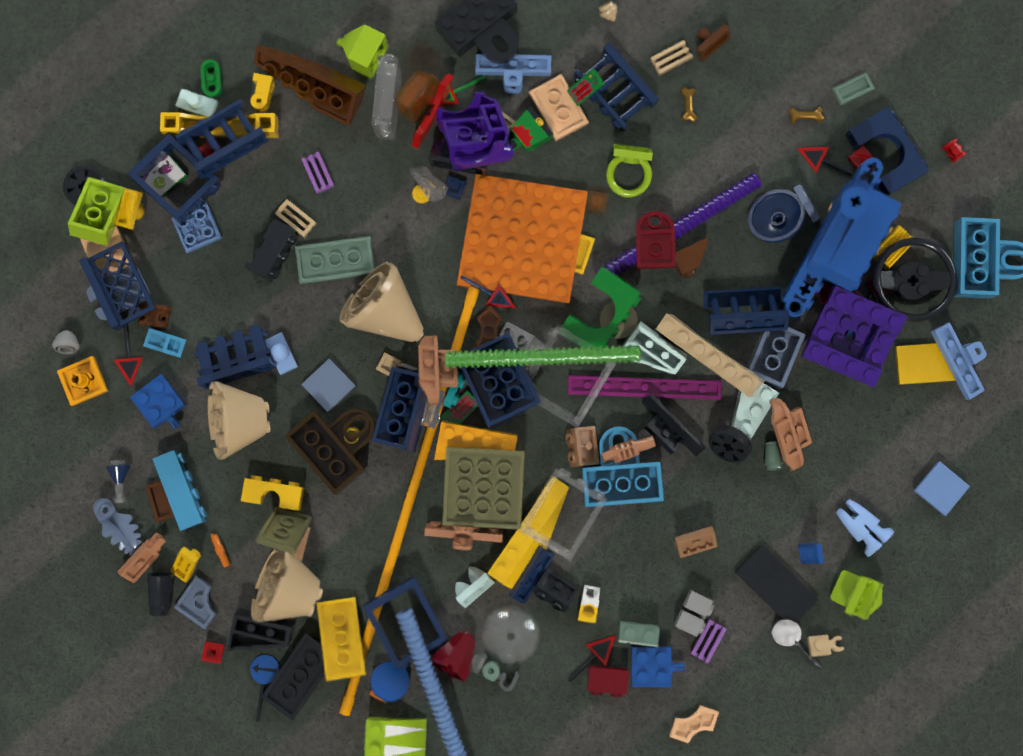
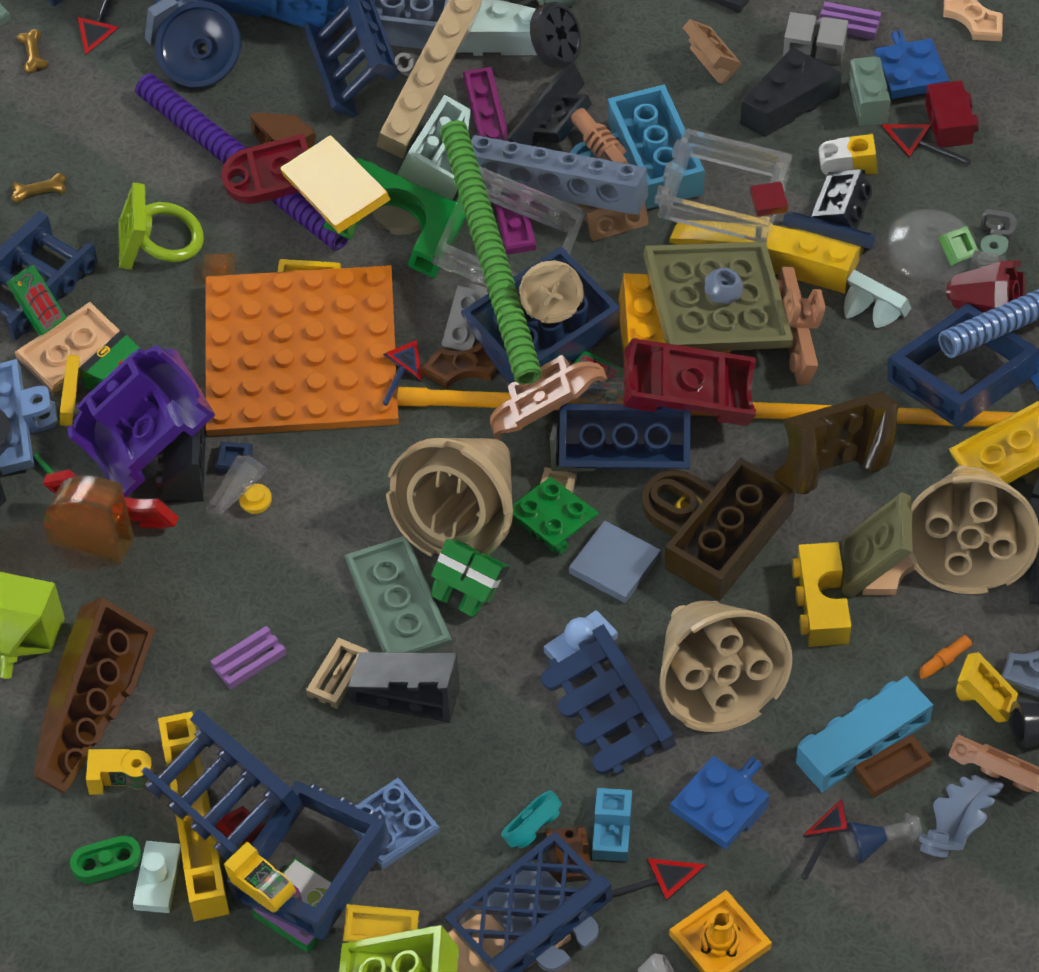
camera: 105 degrees left, 30 degrees down
(132, 456) = (832, 822): none -> piece
(156, 148) = (259, 878): none -> yellow leg
(175, 300) = (539, 812): none -> teal plate
(324, 300) = (469, 572): none -> green hips
(364, 549) = (837, 435): none -> dark brown piece
(365, 356) = (552, 514): none -> green hinge
(387, 86) = (98, 529): clear window -> none
(419, 452) = (688, 380): none -> dark red piece
(485, 485) = (723, 285): none -> sand blue plate
(496, 649) = (958, 245): none -> bright green tile
(497, 385) = (551, 291): none -> tan tile
(519, 99) = (69, 390): none -> yellow tile
(535, 535) = (769, 199): none -> dark red tile
(605, 414) = (566, 175): none -> sand blue brick
(618, 274) = (335, 184): none -> tile
(650, 582) = (788, 90): none -> black wedge
(724, 344) = (401, 61): none -> light grey pin

